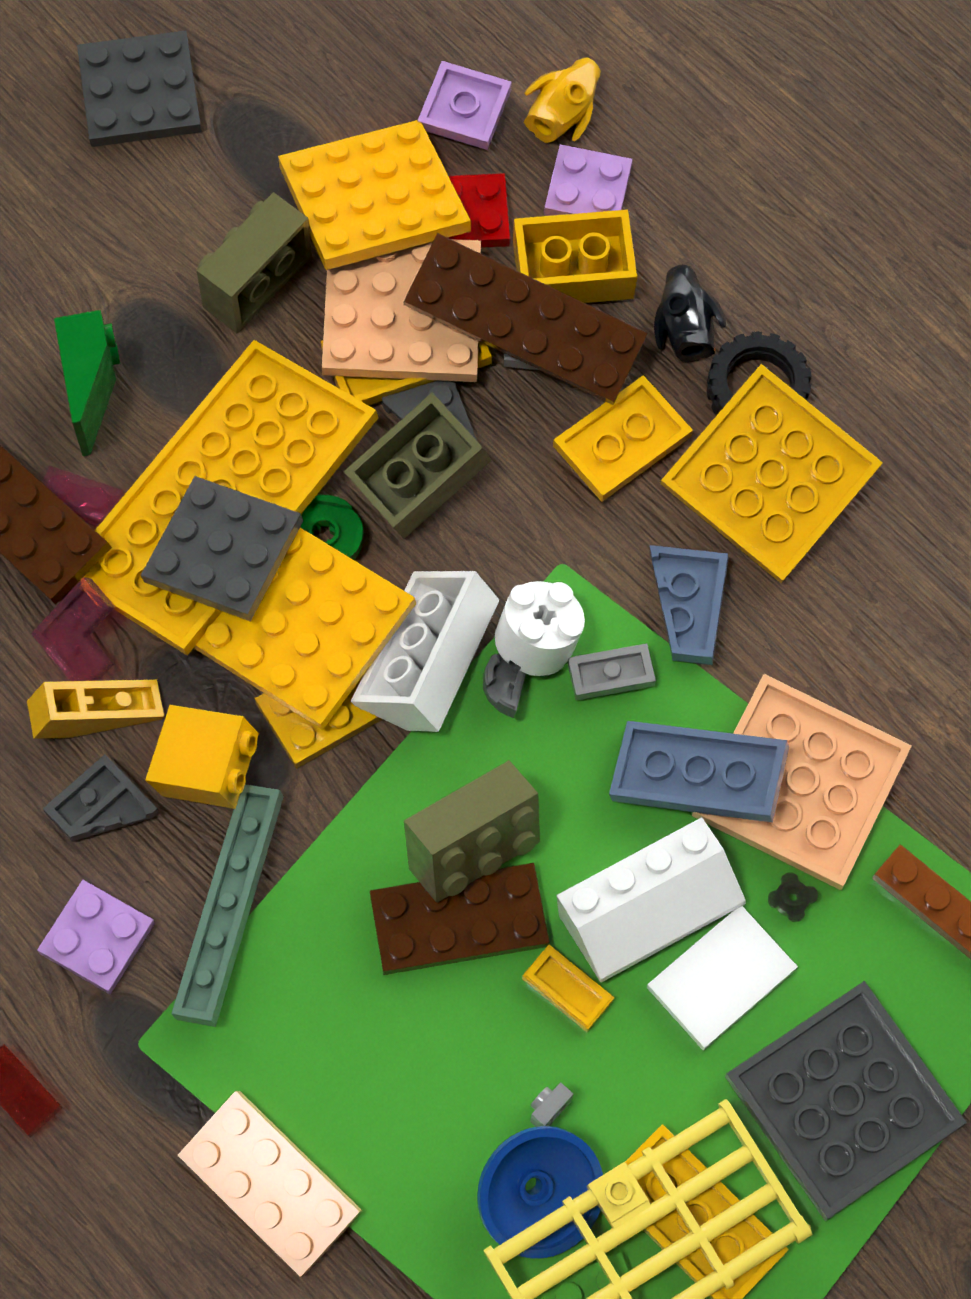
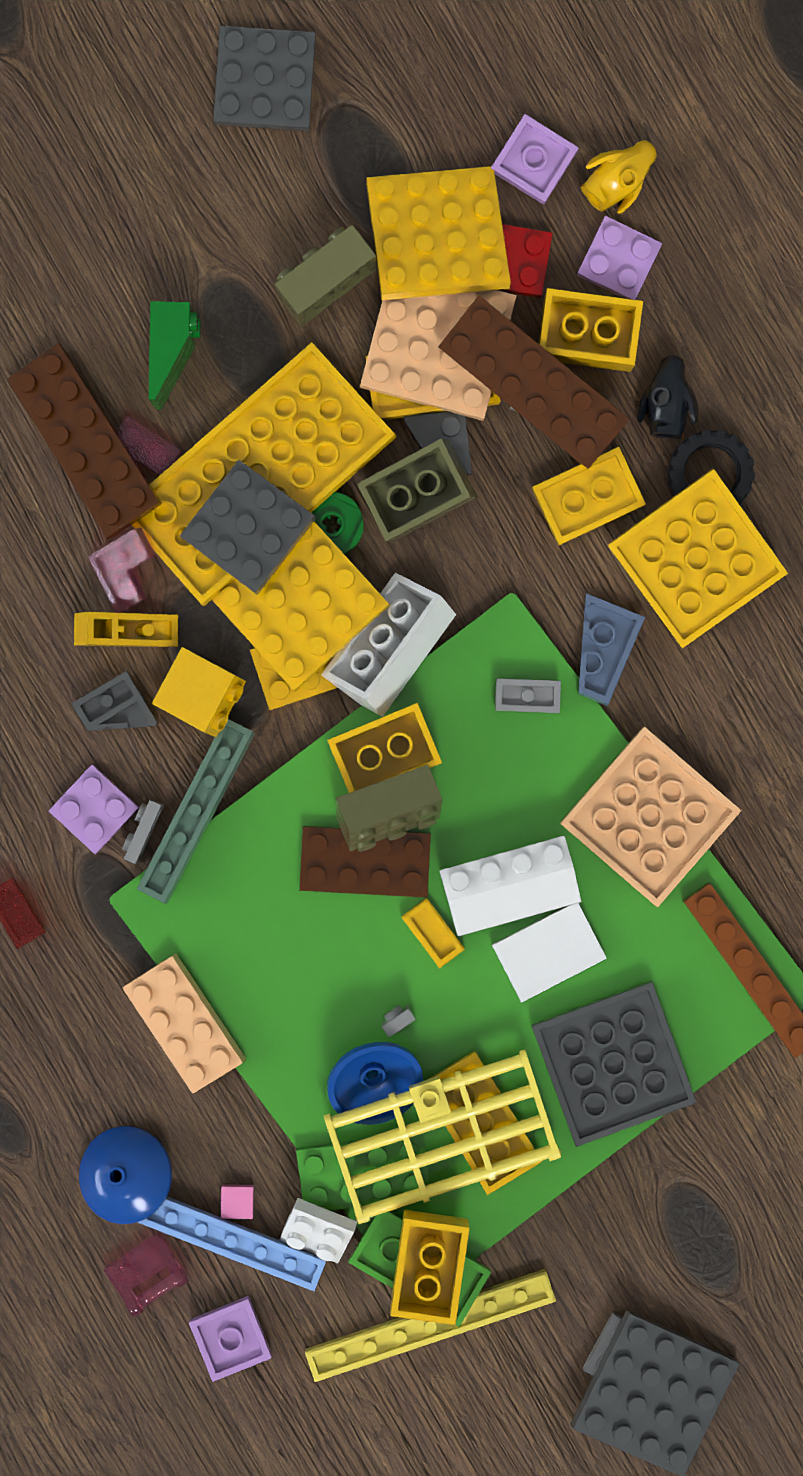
camera: 20 degrees right, 20 degrees up
(168, 928) = (136, 843): none -> light grey plate
(447, 759) = (384, 748): none -> yellow brick
(503, 684) = (444, 682): dark grey plate -> none
(539, 627) = (492, 639): white brick -> none
(699, 771) = (573, 796): sand blue plate -> none
(792, 909) = (618, 895): clear smoke plate -> none

